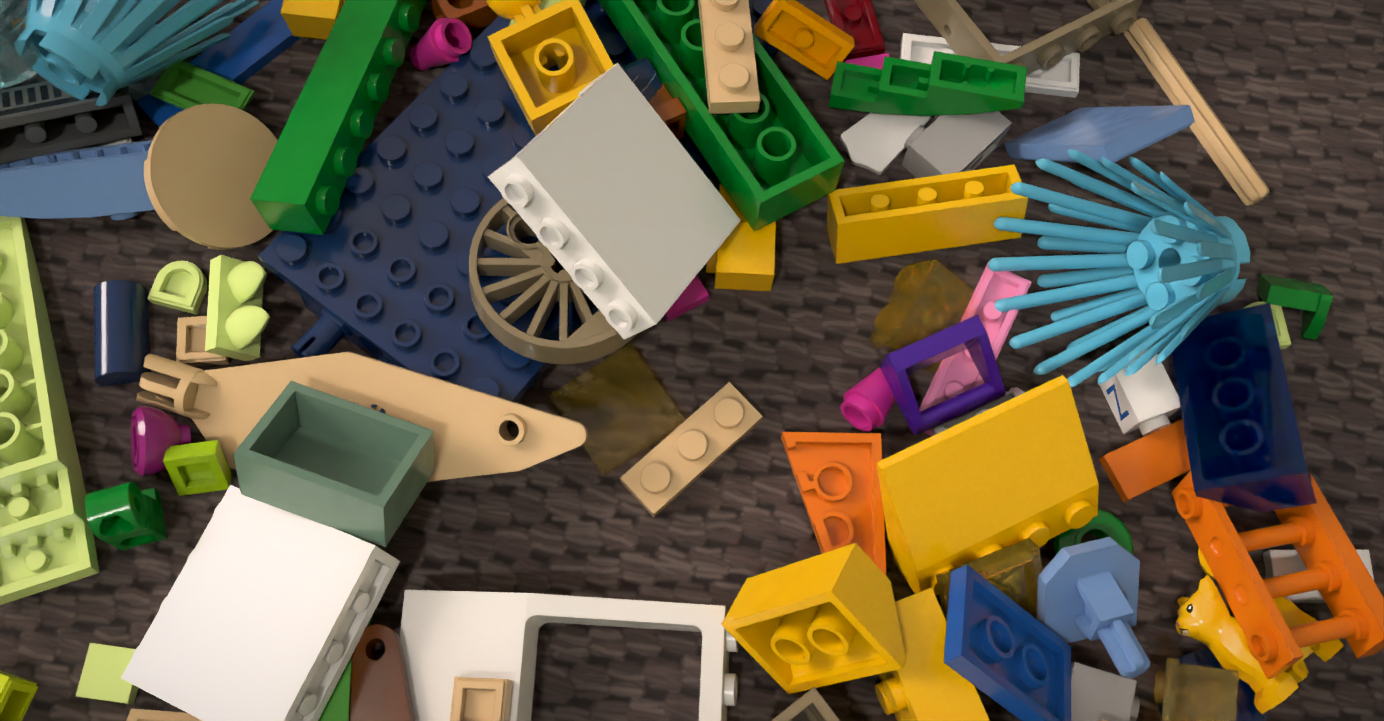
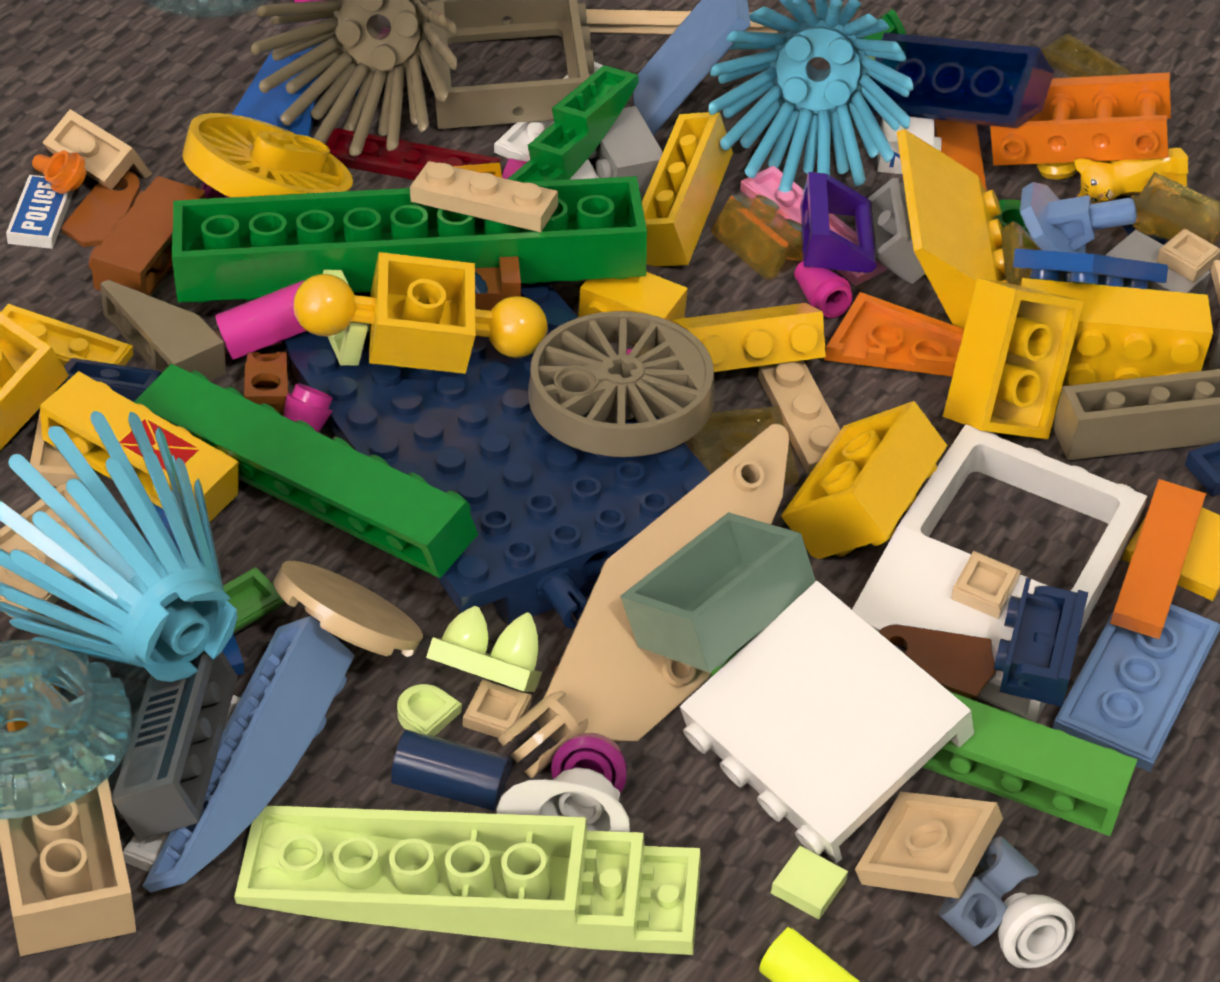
camera: 65 degrees left, 25 degrees down
(98, 446) = (571, 794): none -> white piece
(126, 515) = (665, 796): green leg -> none
(197, 467) = (640, 741): lime plate -> none
(583, 540) = (865, 481): none -> yellow brick
(618, 202) = (603, 298): white panel -> none
(746, 357) = (760, 335): none -> yellow brick

